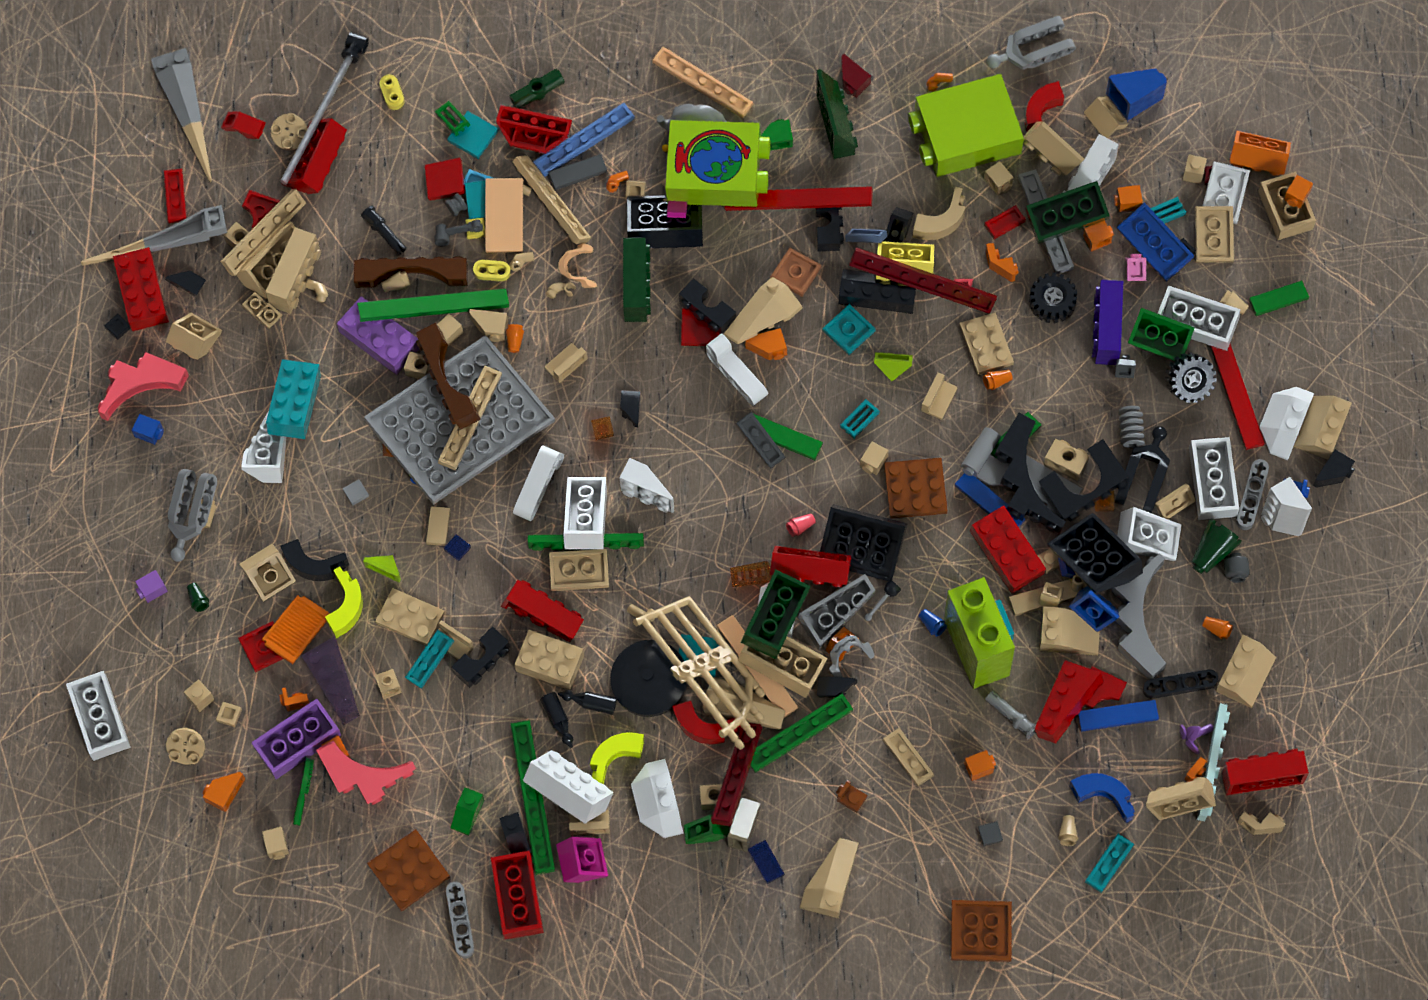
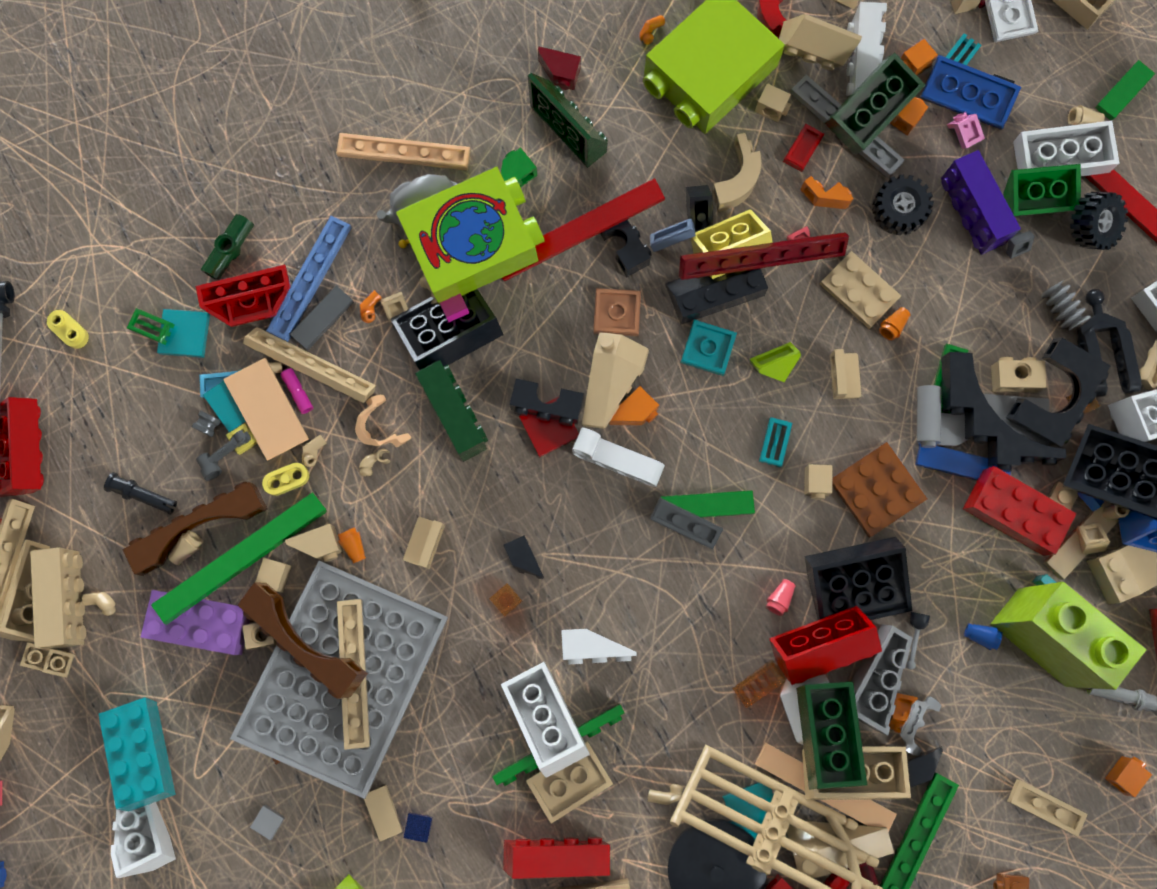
camera: 30 degrees left, 10 degrees up
(444, 179) = (178, 400): red tile -> none
(532, 217) = (295, 388): none -> dark pink piece
(537, 482) = (469, 703): white beam -> none
(1214, 234) = (1024, 53): tan tile -> none

